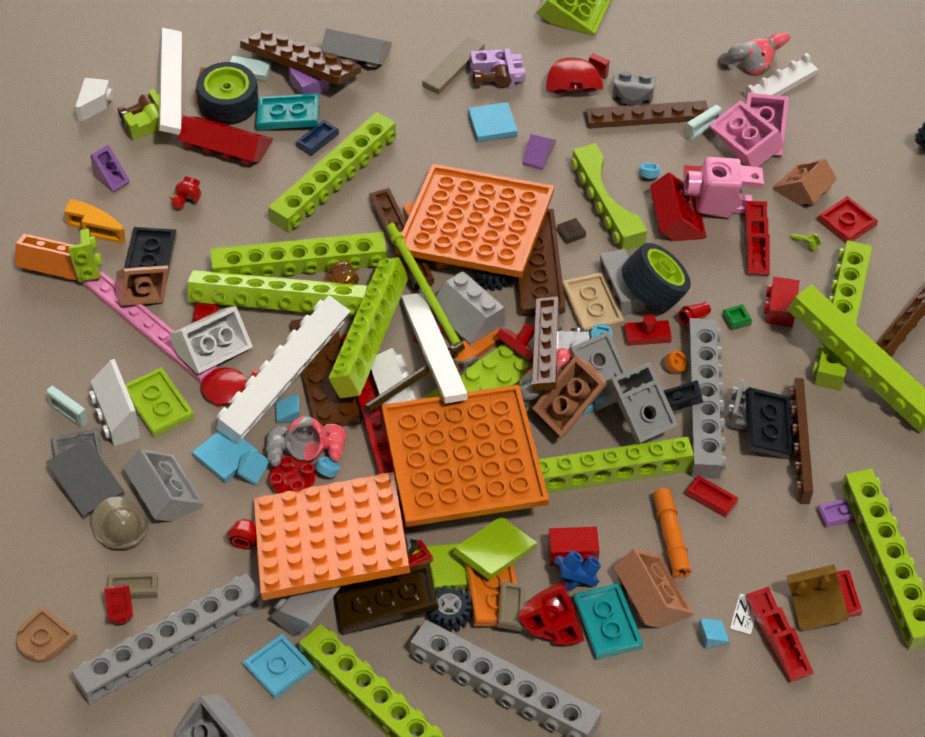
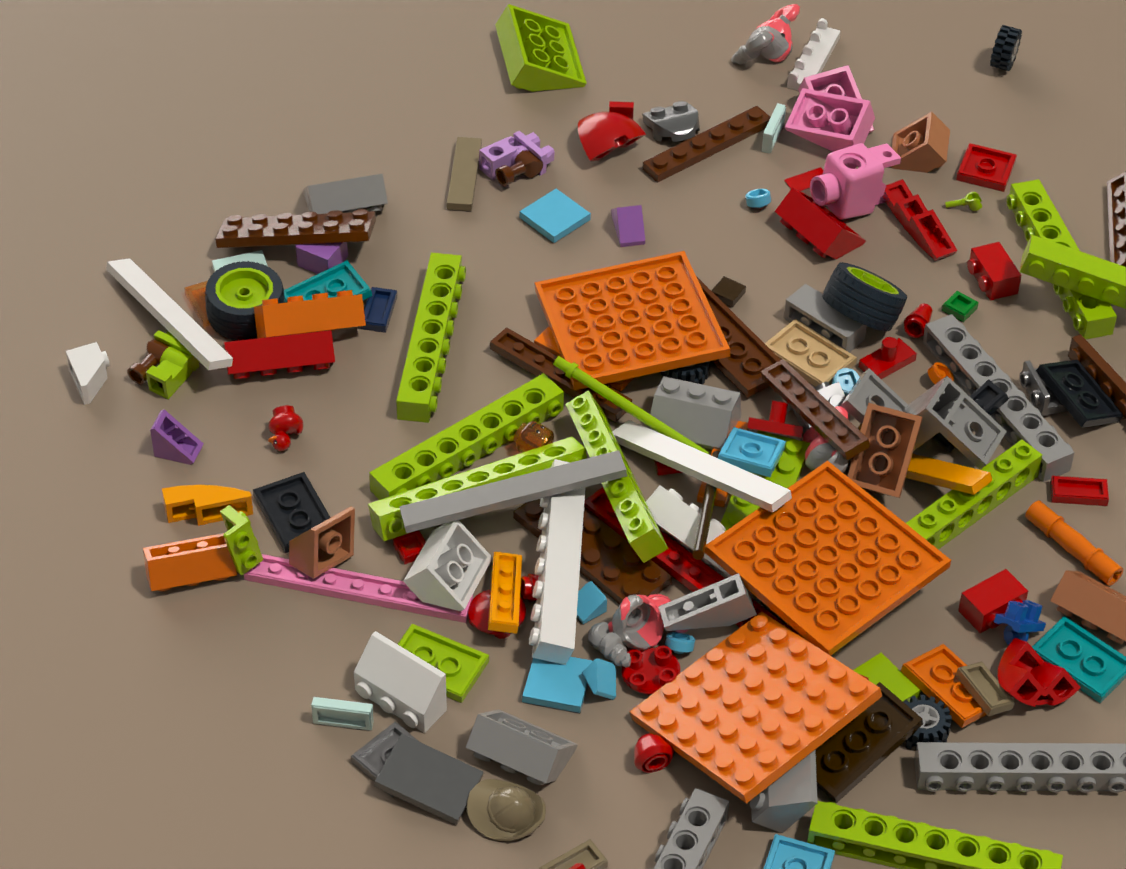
camera: 30 degrees left, 5 degrees down
(234, 374) = (505, 592): none -> light orange tile
(257, 121) = (309, 315): none -> orange brick
(283, 305) = (513, 491): none -> light grey tile
(363, 452) = (709, 607): none -> light grey slope
(482, 354) = (752, 451): none -> medium azure tile
(495, 548) = (921, 639): lime tile -> none
(606, 434) = (947, 474): none -> light orange tile
(625, 226) = (779, 263): lime arch -> none

